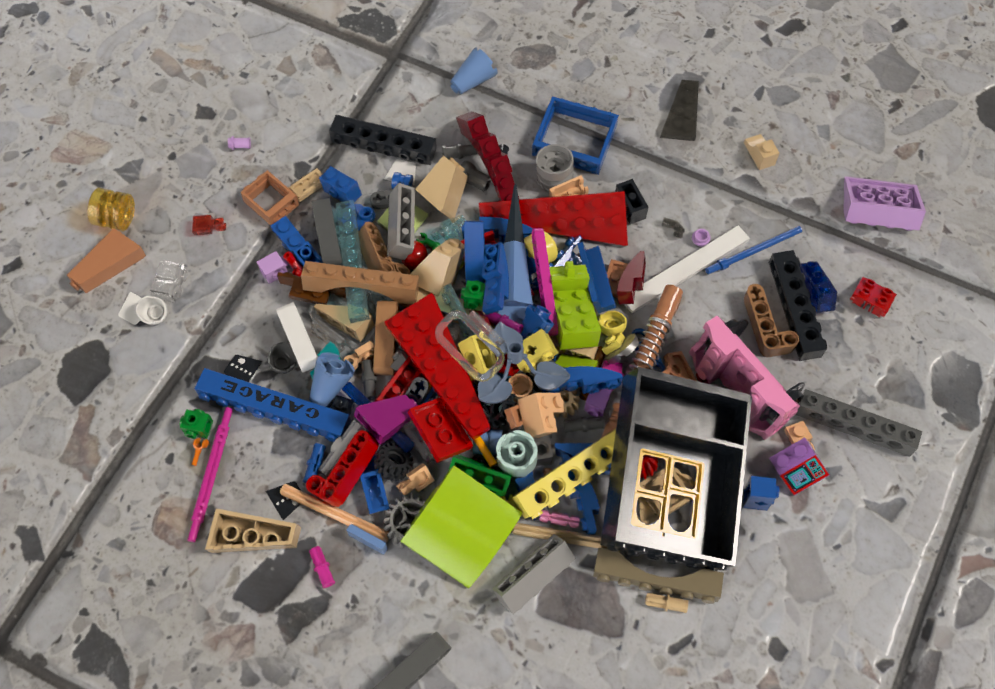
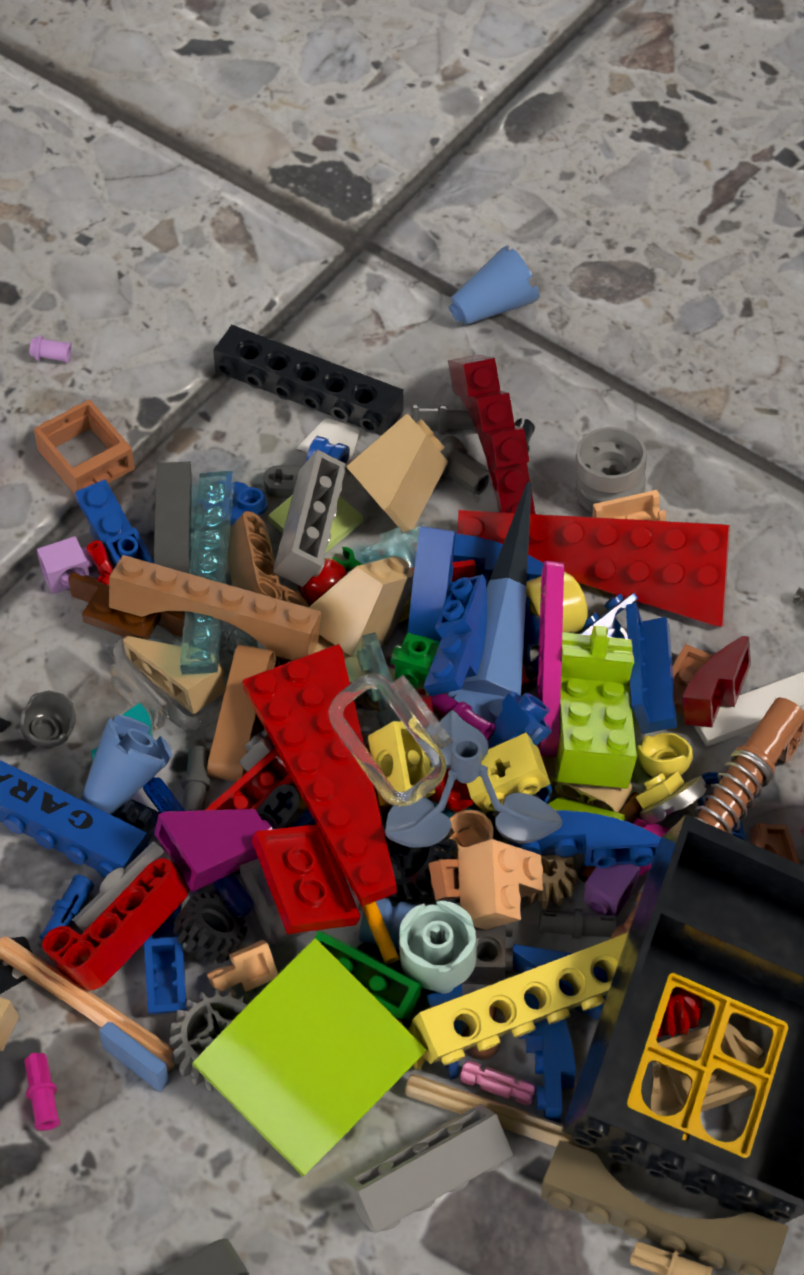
camera: 10 degrees right, 10 degrees down
(297, 336) = (81, 683): white beam -> none
(307, 185) = (159, 436): tan plate -> none
(340, 185) = (214, 444): blue brick -> none
(364, 352) = (193, 733): light nougat plate -> none
(582, 112) = (683, 386): blue window -> none
(635, 204) = (747, 552): black brick -> none

